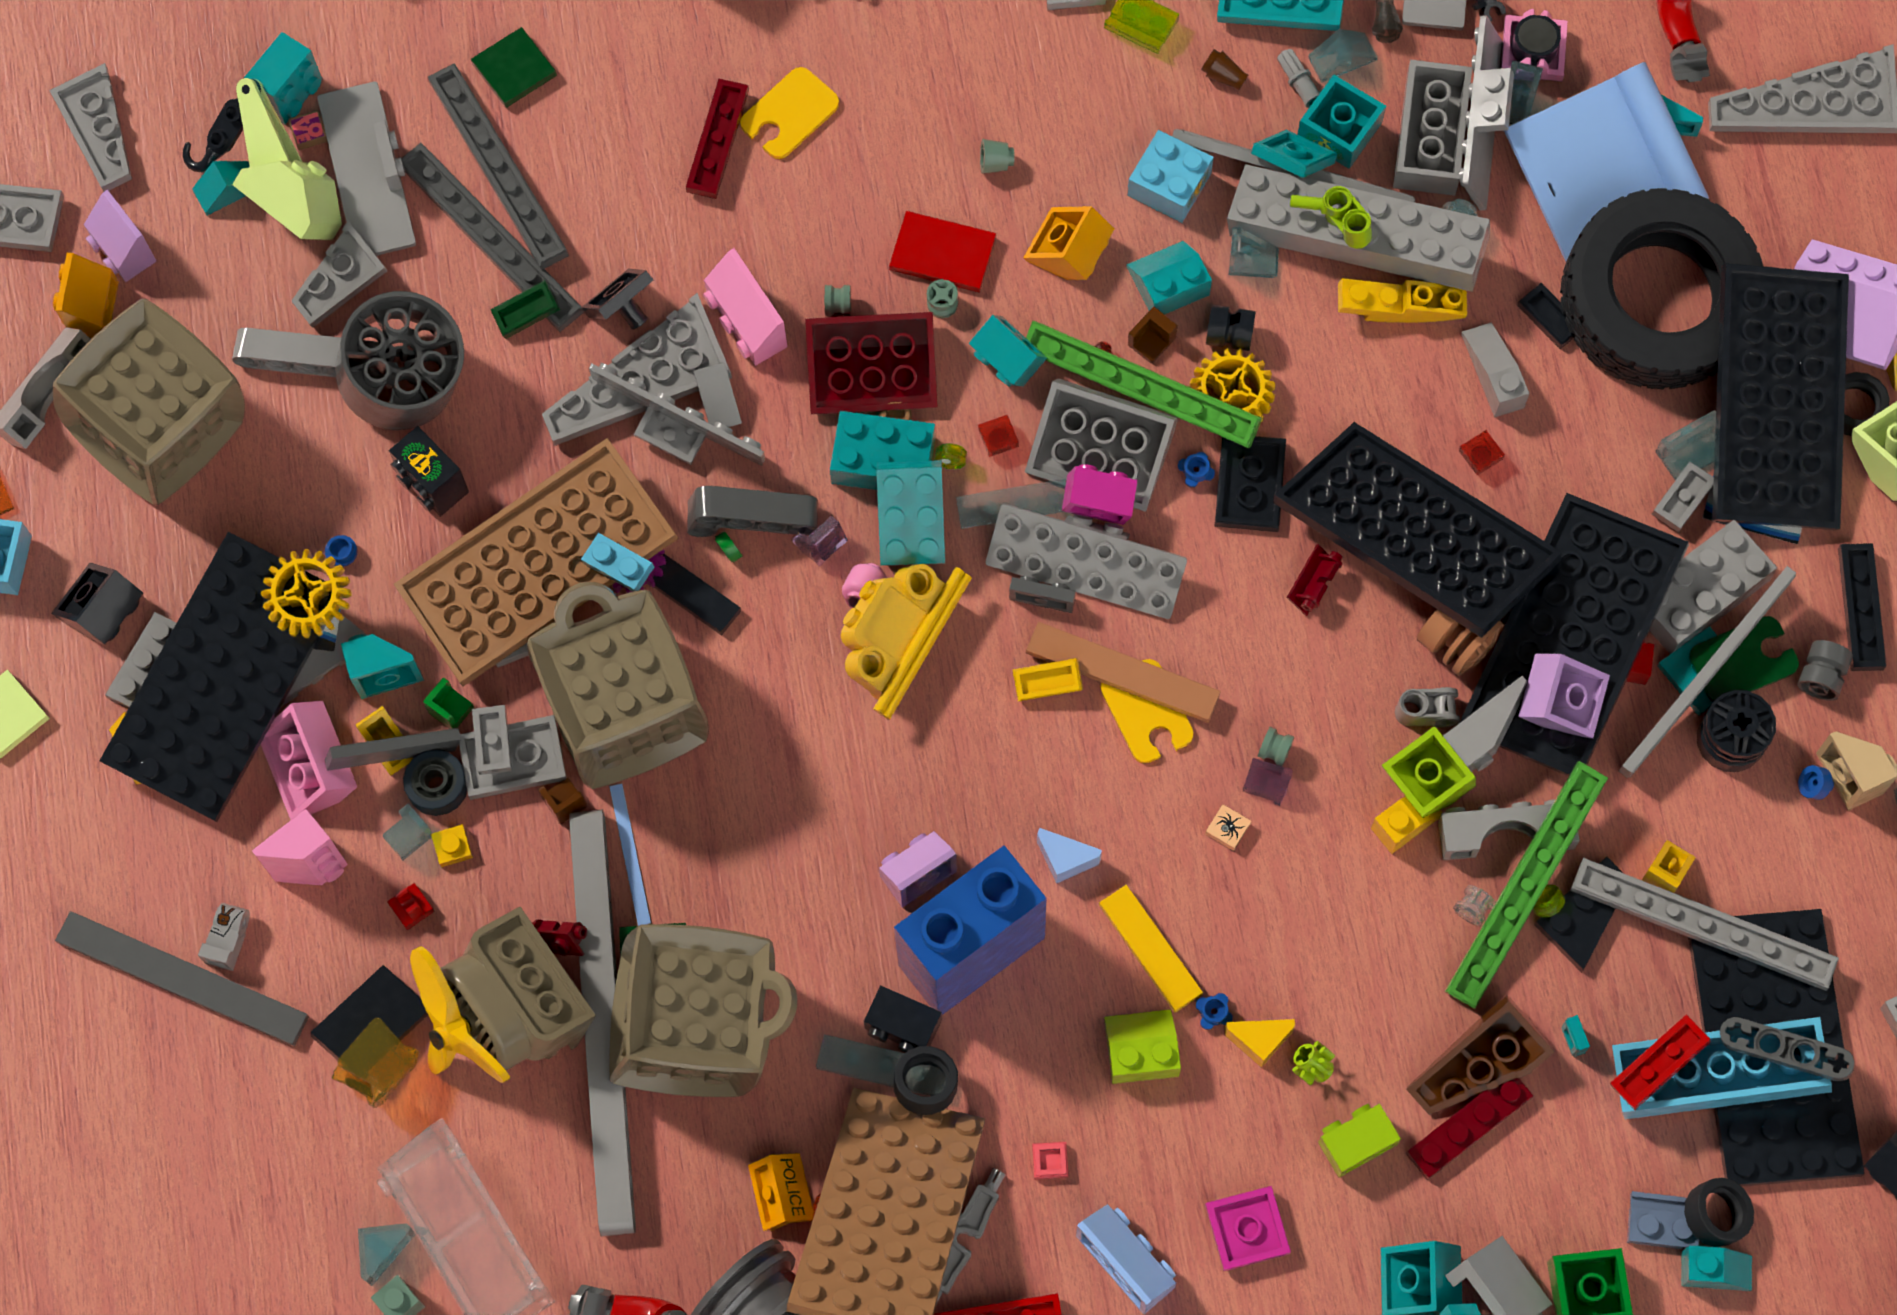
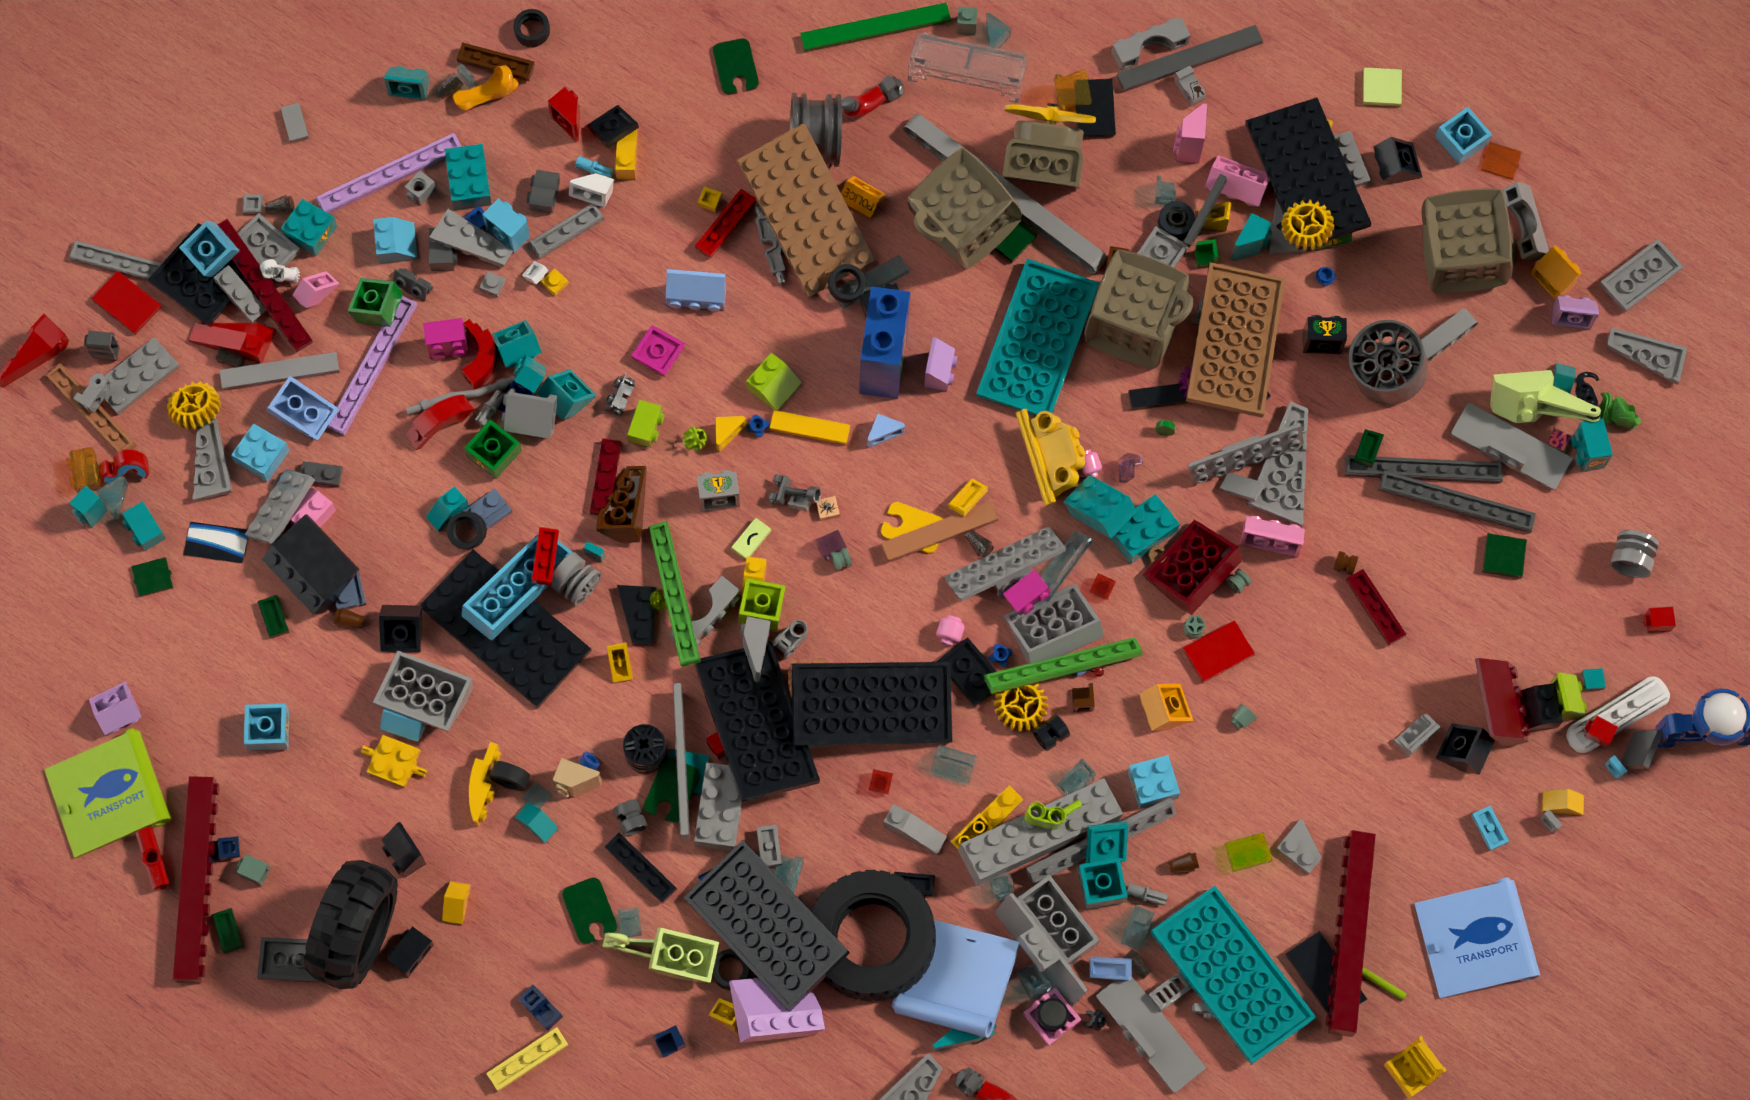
camera: 130 degrees right, 0 degrees up
(206, 92) = (1618, 411): none -> bright green hair
(246, 1055) = (1170, 34): none -> light grey arch
(339, 277) = (1464, 387): light grey wing -> none
(410, 906) = (1131, 167): red tile -> none
(451, 845) = (1141, 204): yellow plate -> none
(492, 740) = (1170, 252): light grey plate -> none
(562, 938) = (1058, 204): dark red hinge -> none
(617, 563) = (1197, 362): medium azure plate -> none
(619, 297) = (1333, 487): black tile -> none
(630, 854) = (1047, 258): light blue sticker -> none
(698, 215) = (1345, 563): none -> reddish brown wheel
(750, 510) = (1169, 449): dark grey beam -> none
(760, 794) = (1037, 338): none -> teal plate
(795, 106) = (1359, 659): yellow piece -> none
(952, 456) = (1113, 557): clear neon green tile -> none
(1007, 351) = (1138, 626): teal brick -> none
(1050, 1160) = (766, 306): coral tile -> none
(1053, 596) = (1014, 529): dark grey plate -> none
(1090, 614) = (980, 544): none -> clear smoke cone
(1171, 278) = (1105, 733): teal slope -> none
(1229, 543) = (950, 630): none -> bright pink head
(1238, 848) = (813, 493): none -> dark grey bar
(1253, 864) = (799, 503): none -> light grey plate
(1312, 580) = (896, 643): dark red hinge -> none
(1350, 961) = (718, 490): none -> light grey brick
(1359, 876) = (751, 538): none -> yellowish green tile
(1366, 1213) = (622, 387): none -> dark grey hinge
(1374, 397) = (953, 764): none -> clear light blue panel
(1420, 34) = (1110, 968): none -> light blue tile
(1474, 905) = (689, 568): clear wheel -> none
(1564, 695) = (733, 683): lavender slope -> none
(1635, 1007) = (575, 578): none -> light grey wheel
(1705, 924) = (581, 648): light grey tile -> none
(1785, 1053) = (496, 605): dark grey beam -> none

